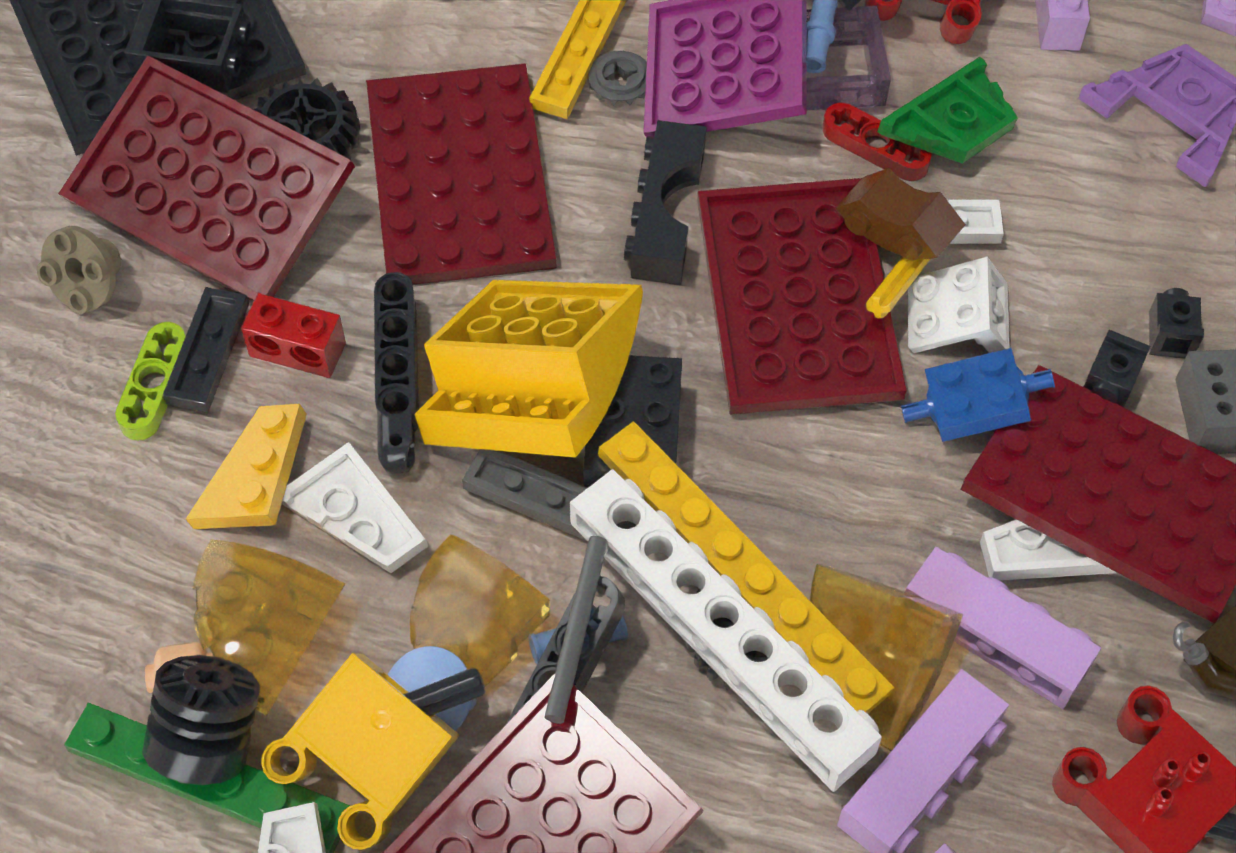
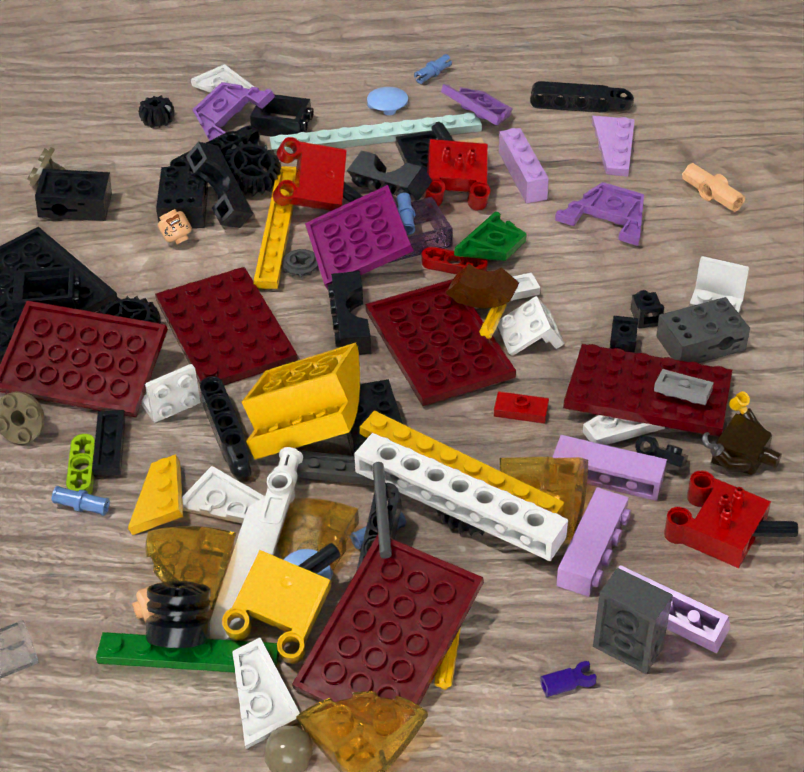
camera: 15 degrees left, 15 degrees down
(130, 446) = (80, 500): none -> medium blue pin
(294, 335) = (159, 423): red brick -> none
(331, 285) = (171, 393): none -> white bracket
(378, 599) = (258, 532): none -> white piece
(893, 461) = (521, 407): none -> red plate
(977, 395) = (555, 362): blue plate -> none
(1110, 631) = (671, 453): none -> black plate
(1179, 514) = (683, 387): none -> light grey plate

